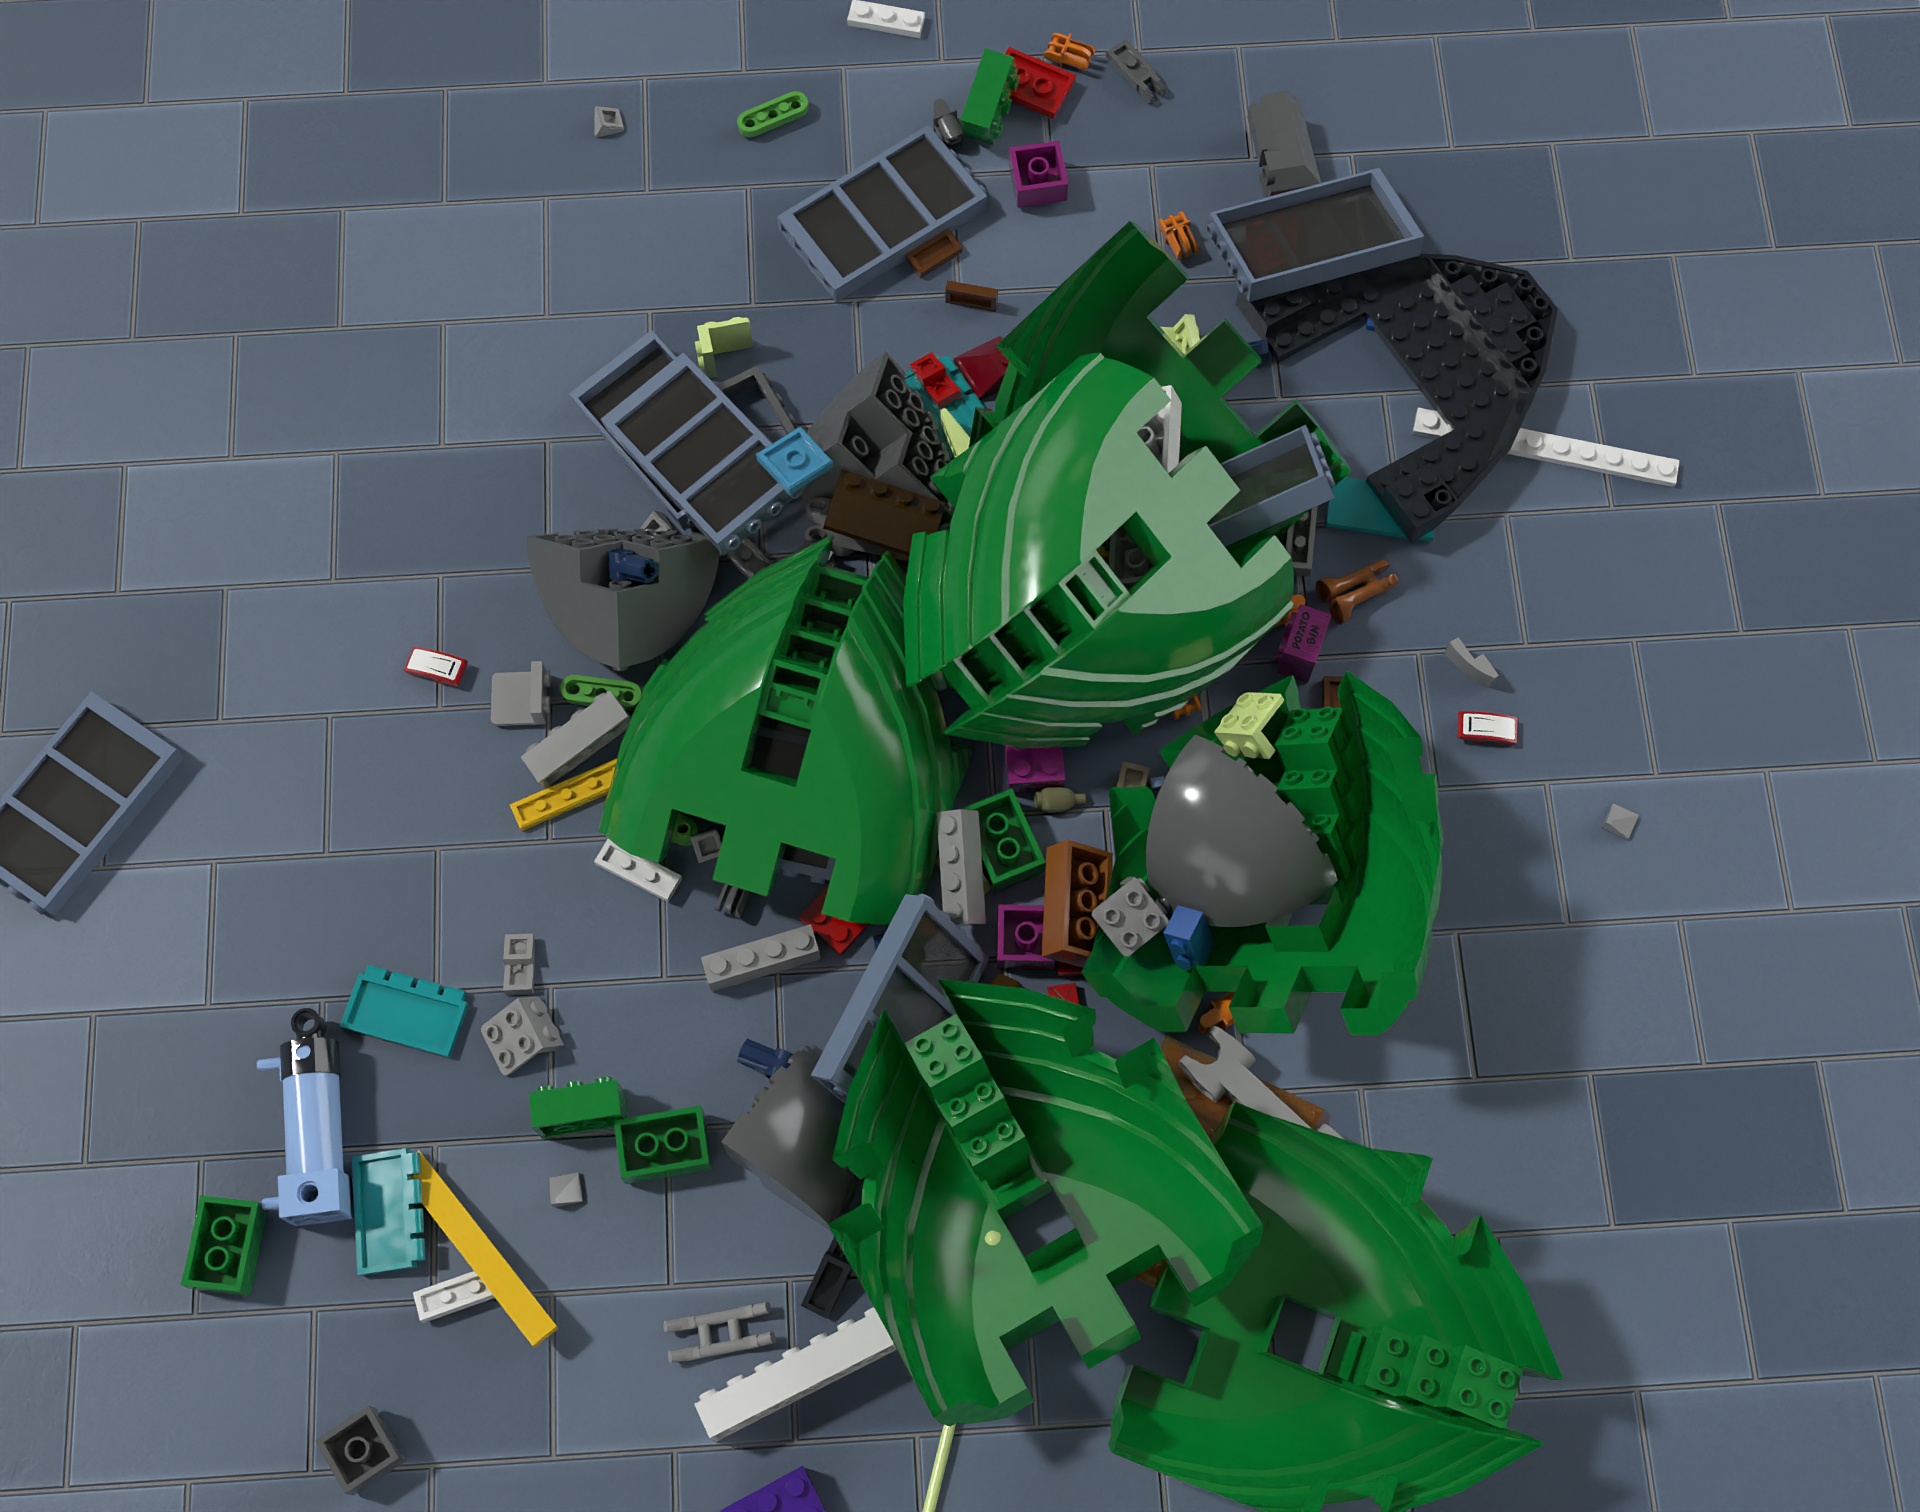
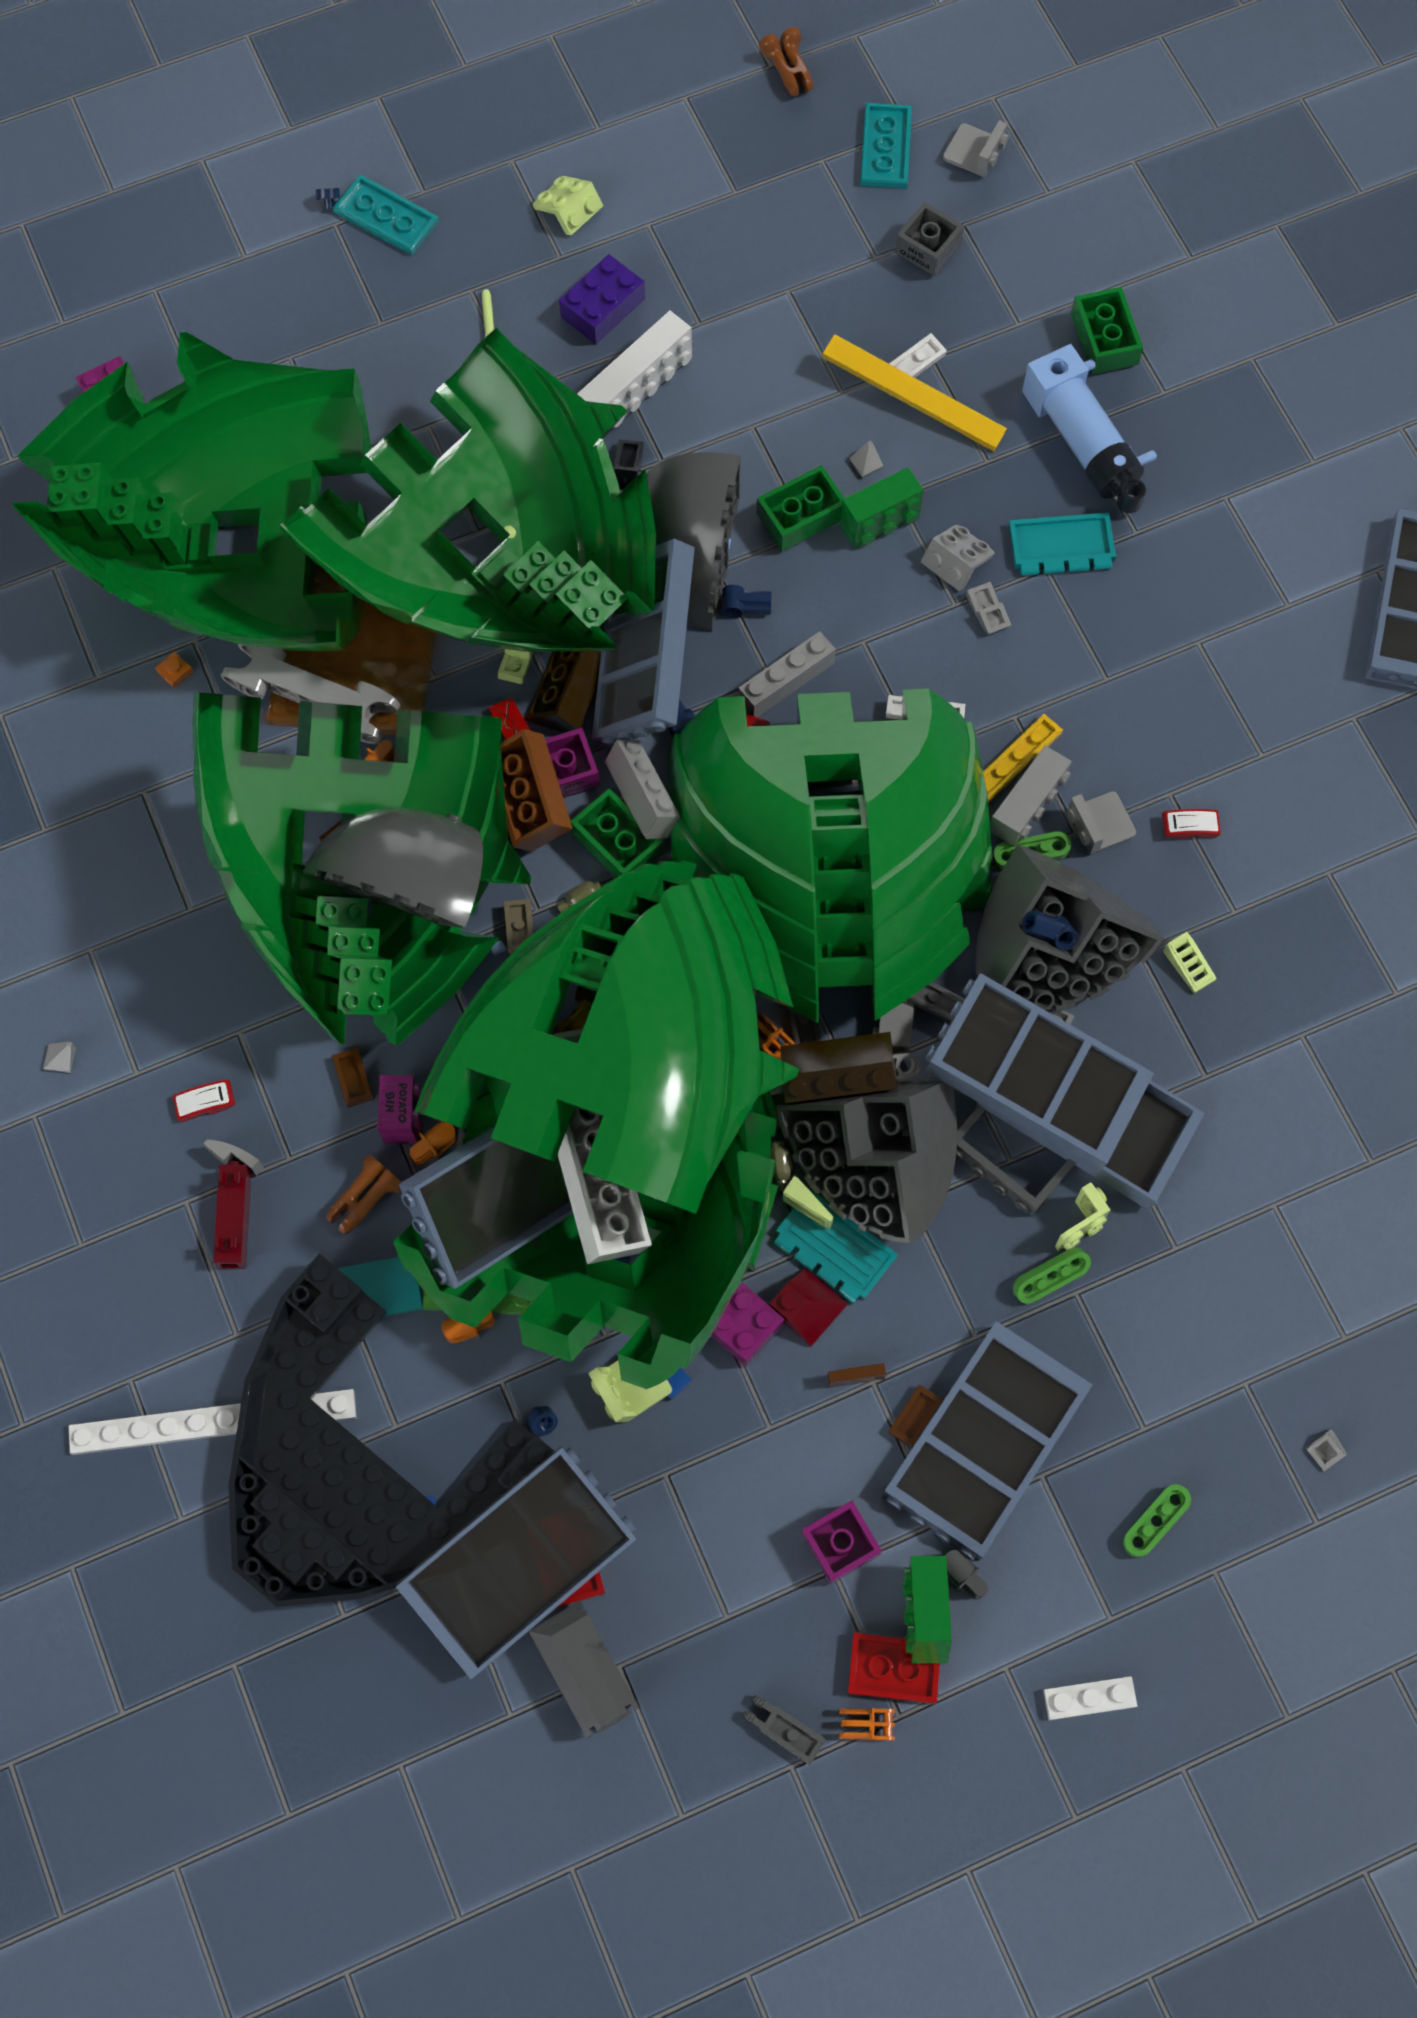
camera: 160 degrees right, 0 degrees up
(386, 1211) = (996, 397): teal hinge -> none
(509, 557) = (1182, 967): none -> yellowish green slope
(703, 1324) = (704, 391): light grey piece -> none
(770, 318) = (1038, 1284): none -> bright green plate
(794, 460) = (942, 1070): dark azure tile -> none
(935, 381) = (854, 1263): red slope -> none
(1130, 916) = (474, 788): light grey bracket -> none
(1179, 235) = (667, 1530): orange arm -> none
(1189, 938) = (422, 791): blue brick -> none
(1242, 726) = (421, 979): yellowish green bracket -> none
(1487, 606) = (232, 1216): none -> dark red brick

